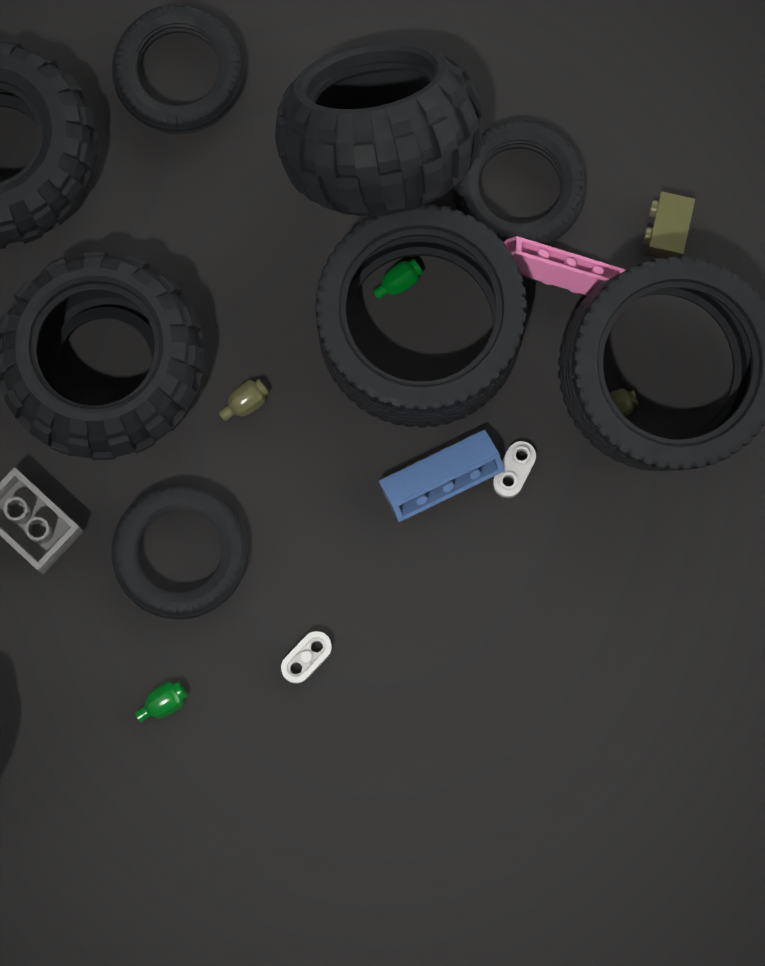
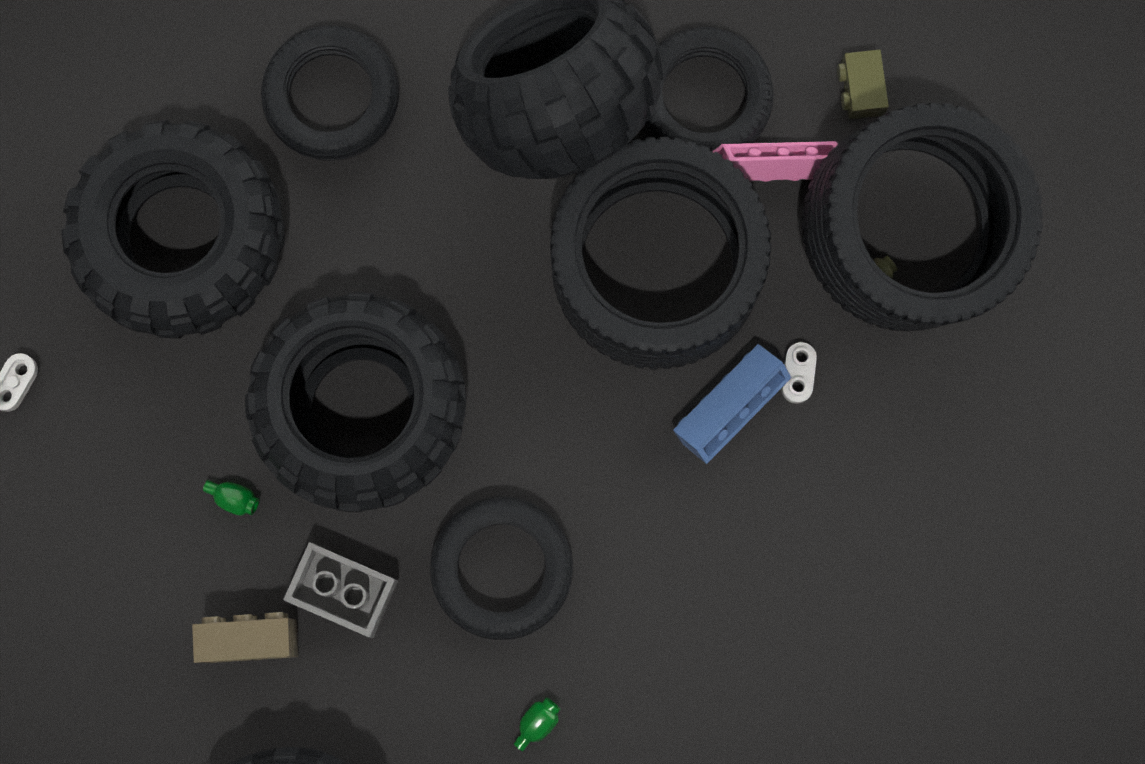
camera: 20 degrees left, 0 degrees up
(245, 399) = (511, 395): olive plant -> none
(306, 657) = (663, 629): white plate -> none
(398, 279) = (619, 225): green plant -> none

